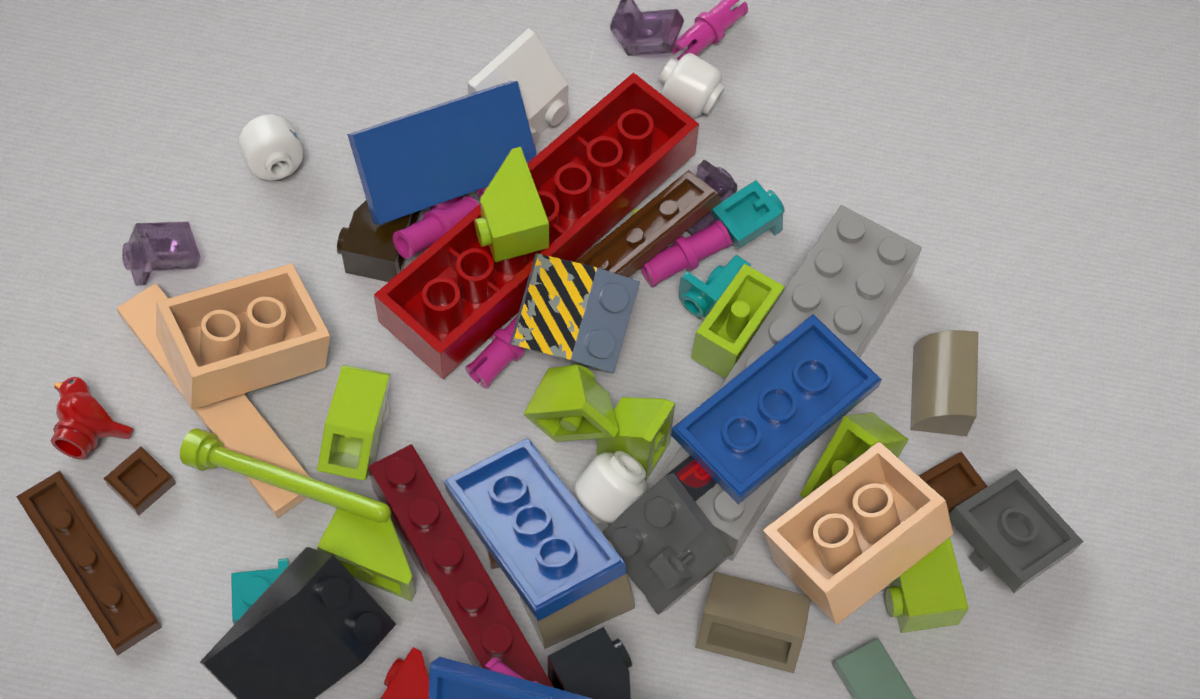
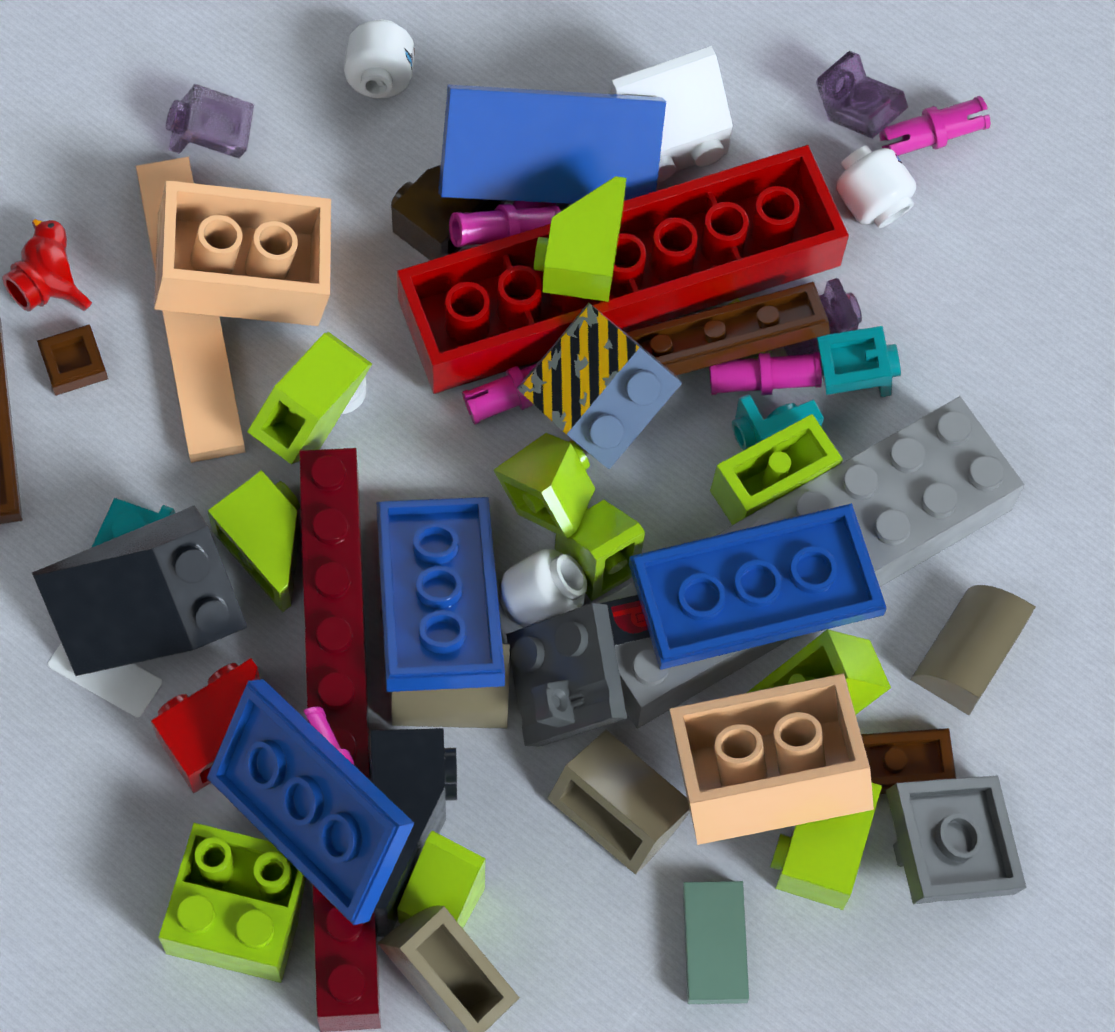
camera: 25 degrees right, 5 degrees up
(205, 451) = (150, 359): lime piece -> none

